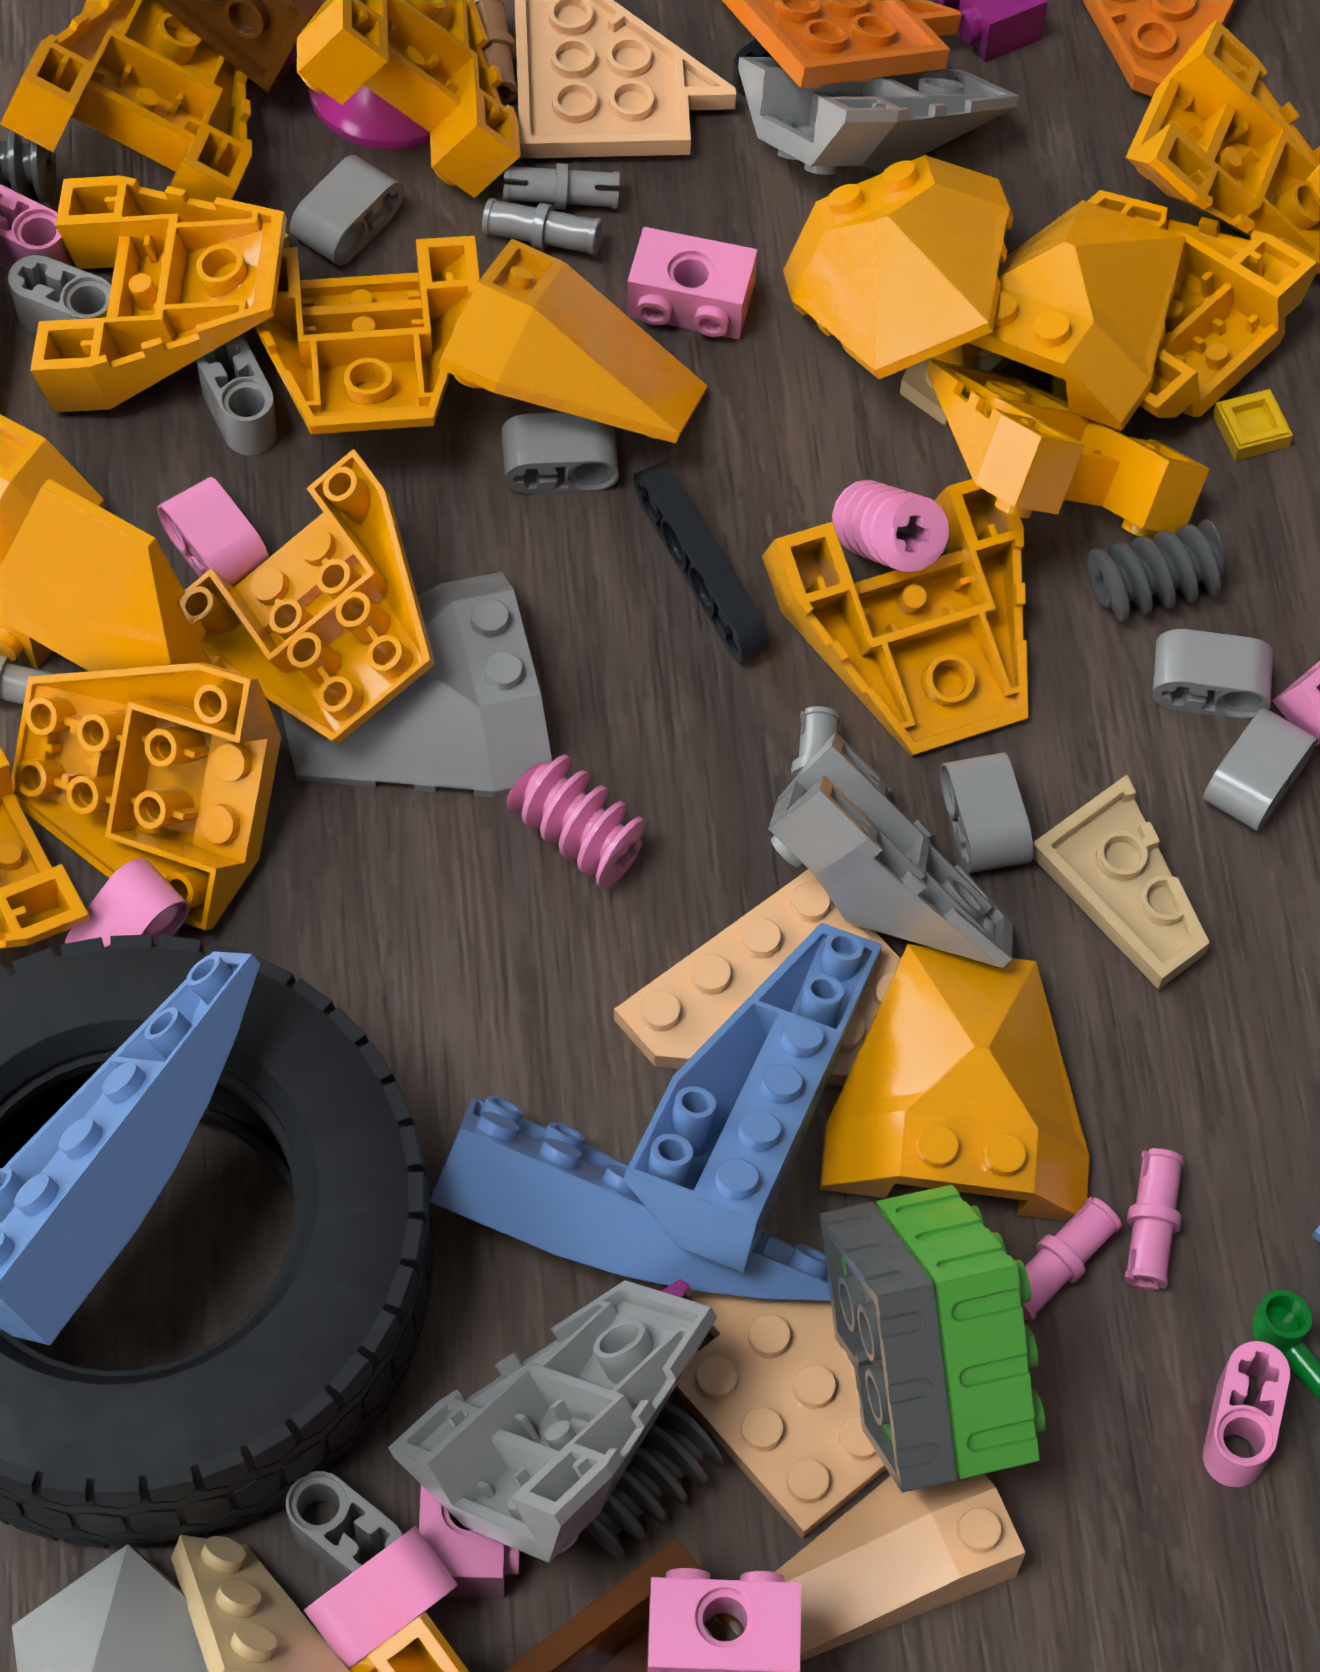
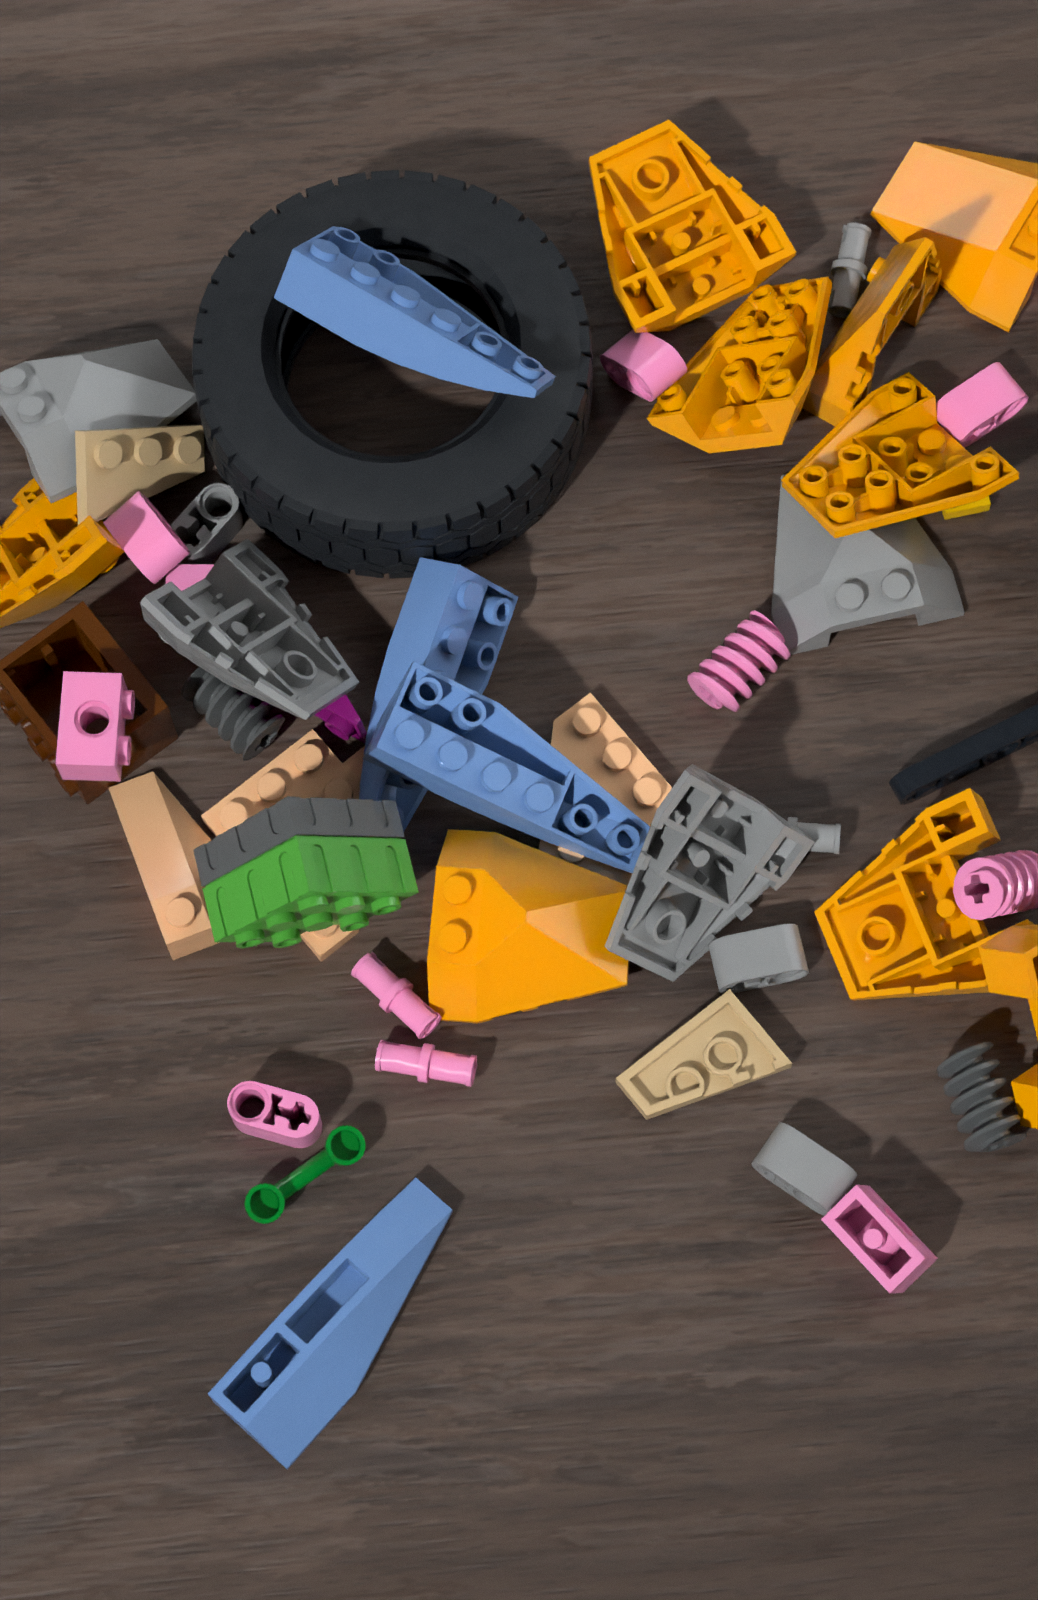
camera: 95 degrees right, 10 degrees up
(1212, 673) = (890, 1139): light grey beam -> none

